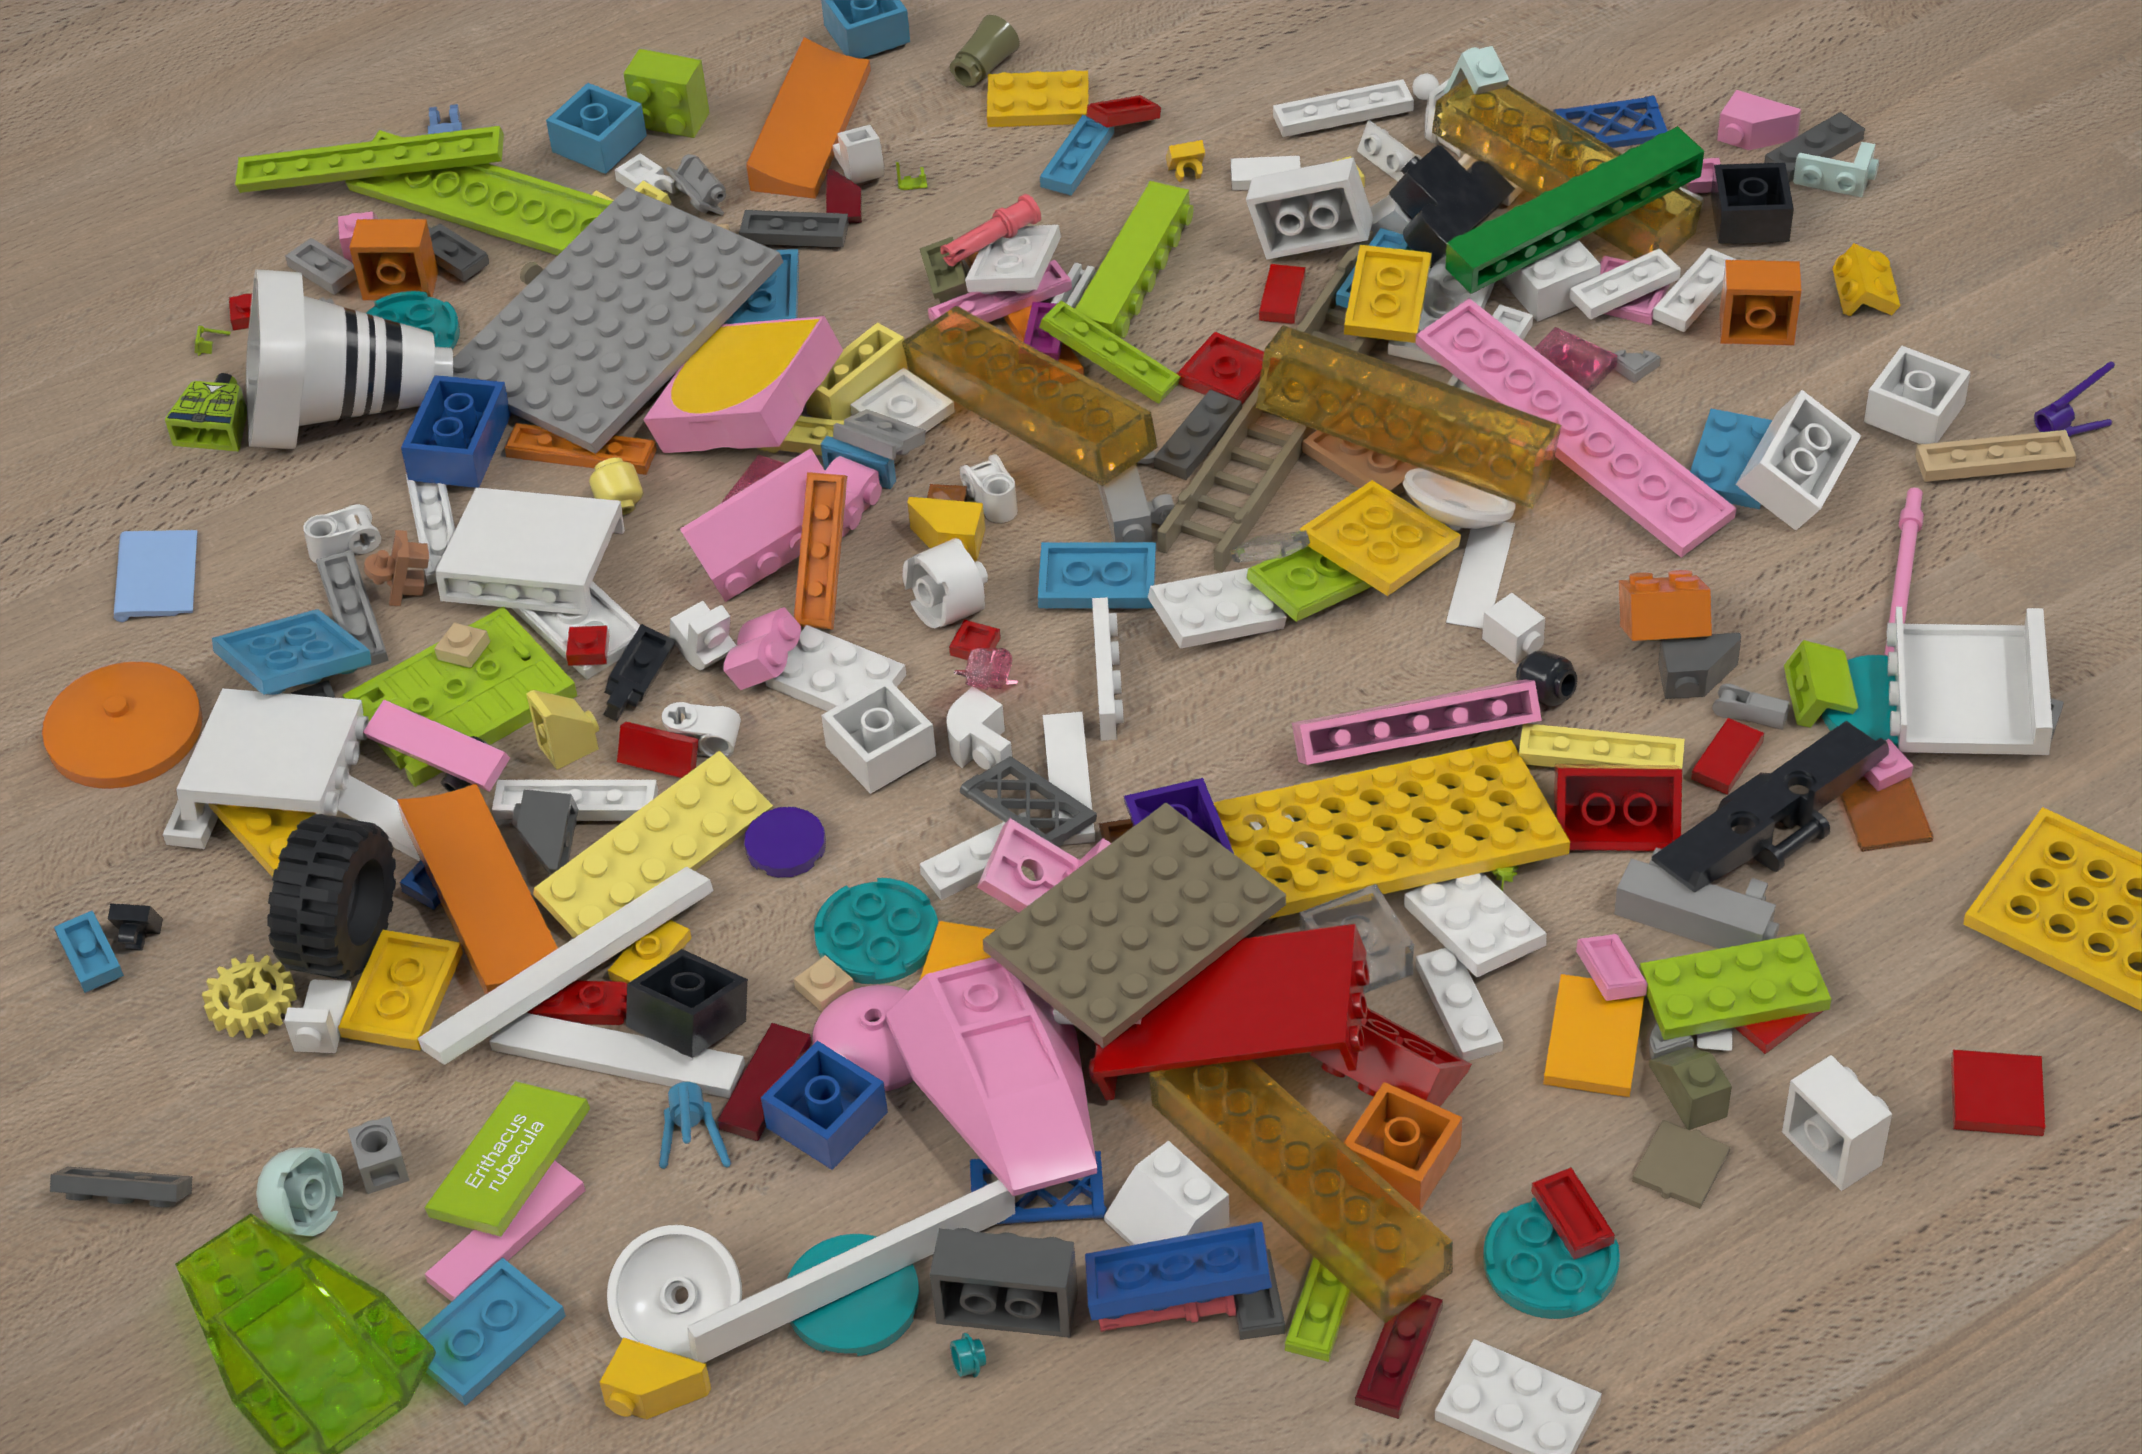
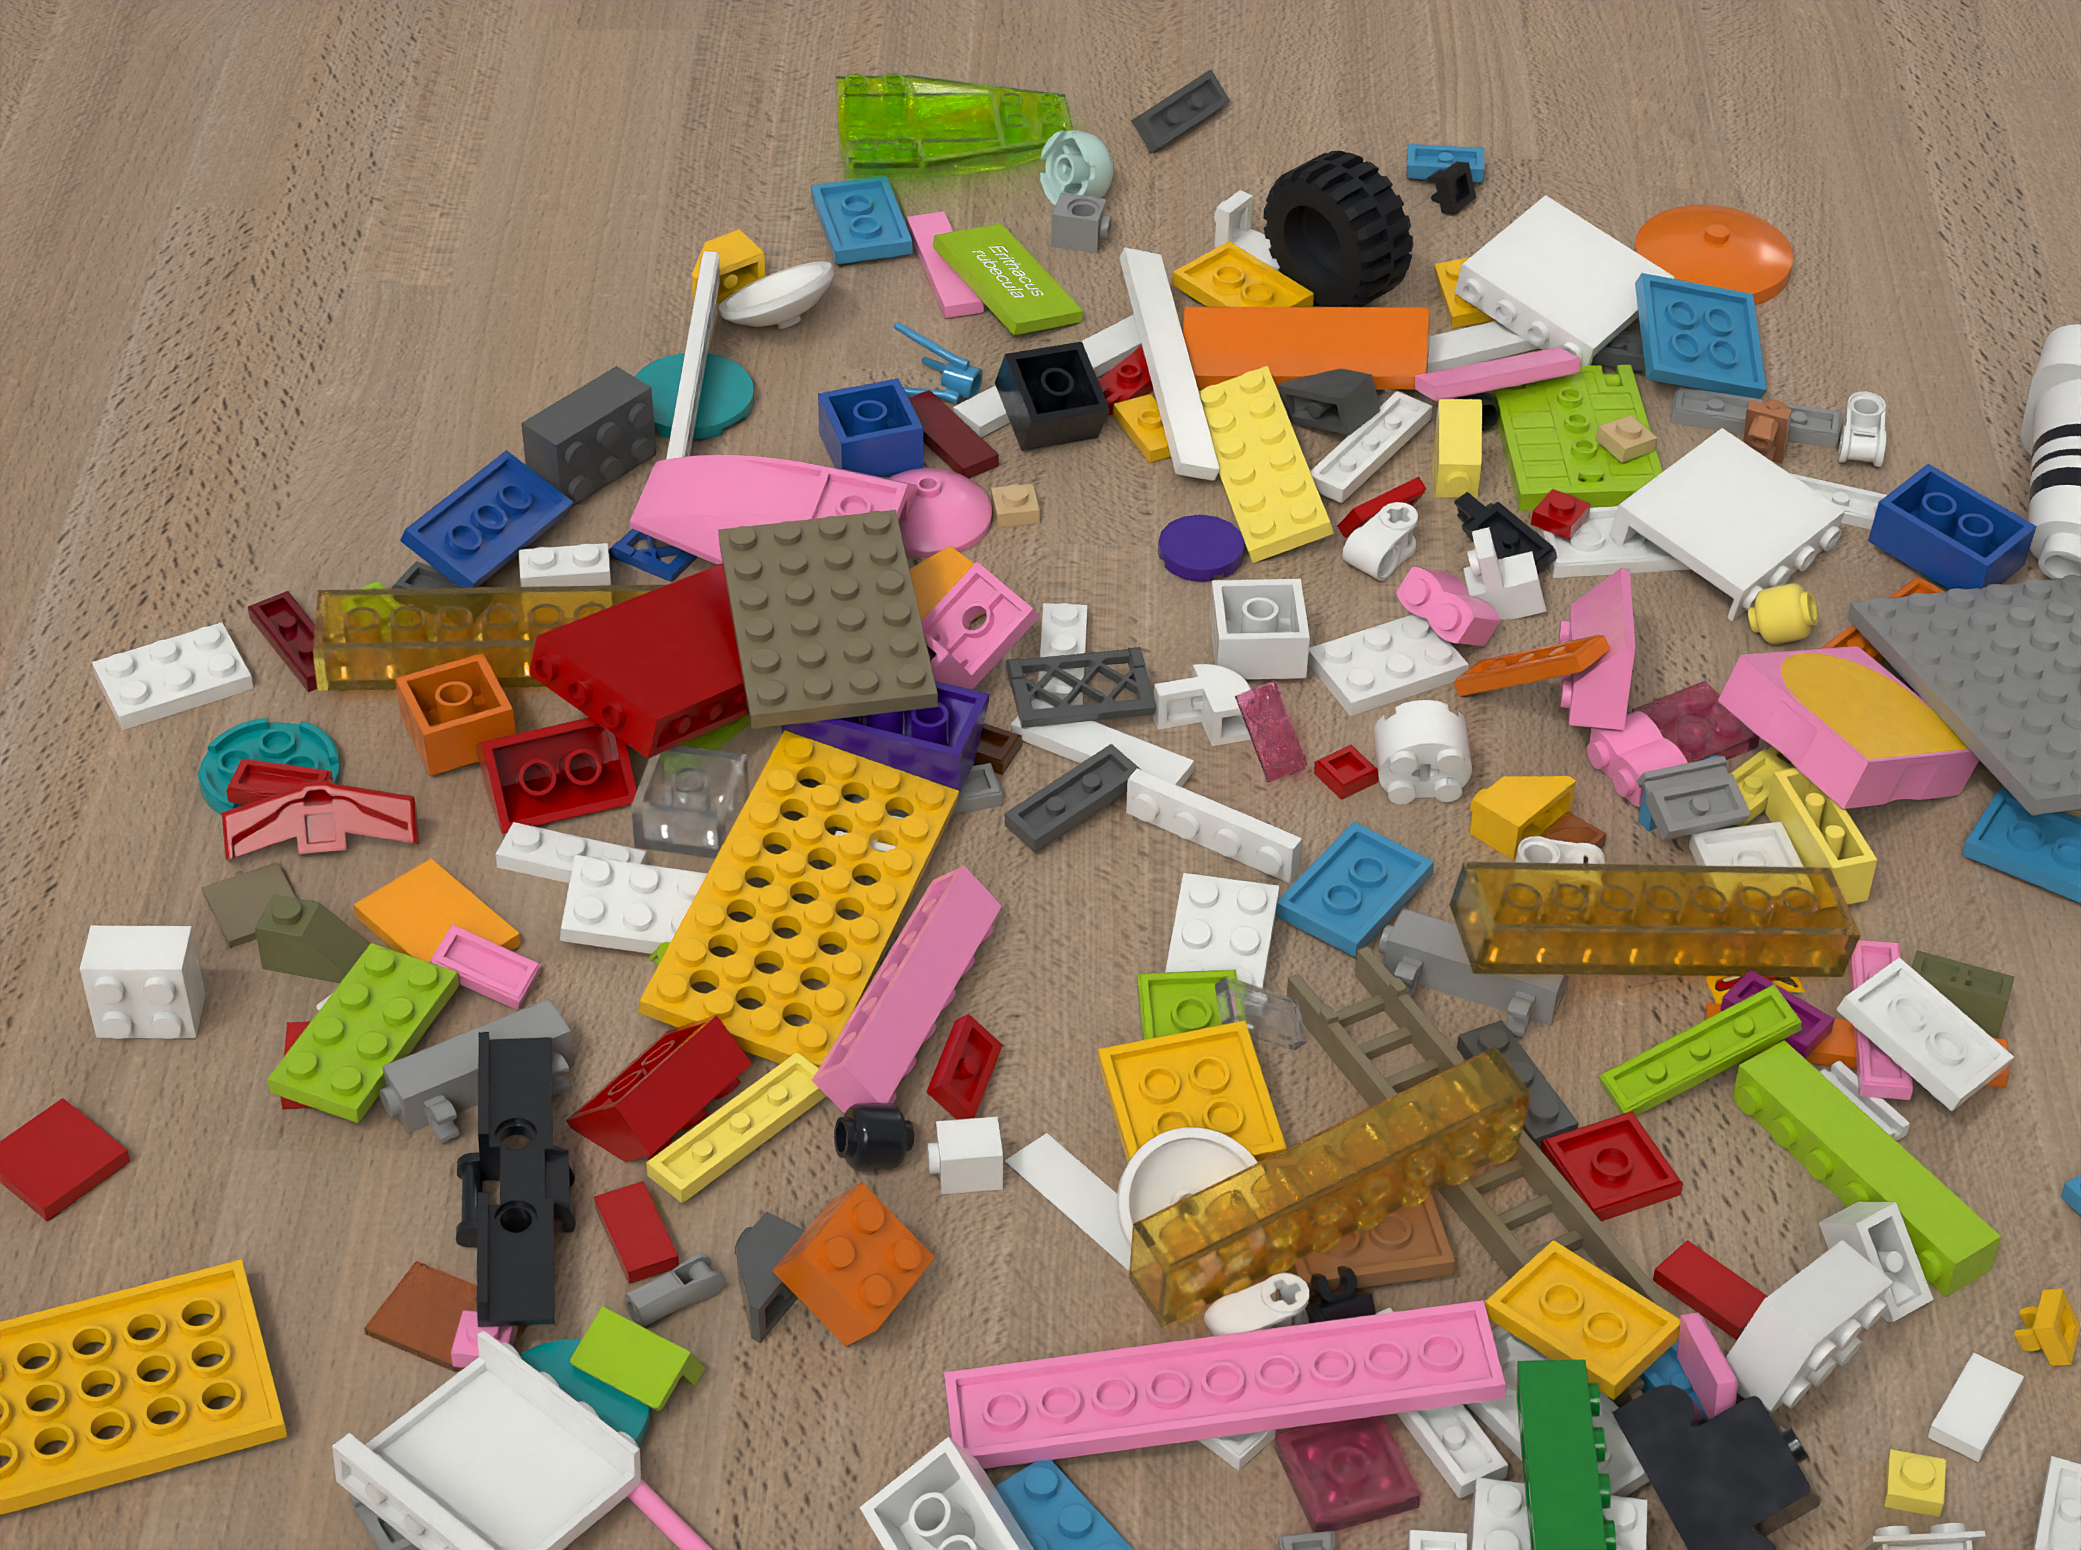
camera: 120 degrees right, 5 degrees down
(155, 573) = (1909, 329): light blue piece -> none
(876, 930) = (1045, 557): teal tile -> none
(1003, 224) = (1983, 1035): coral pin -> none
(1143, 752) = (1071, 798): none -> dark grey plate
(1198, 236) = (1882, 1239): none -> white slope
(1386, 220) = (1705, 1366): none -> bright pink tile
(1462, 668) = (964, 1068): none -> red plate
(1585, 1160) = (320, 818): none -> plate

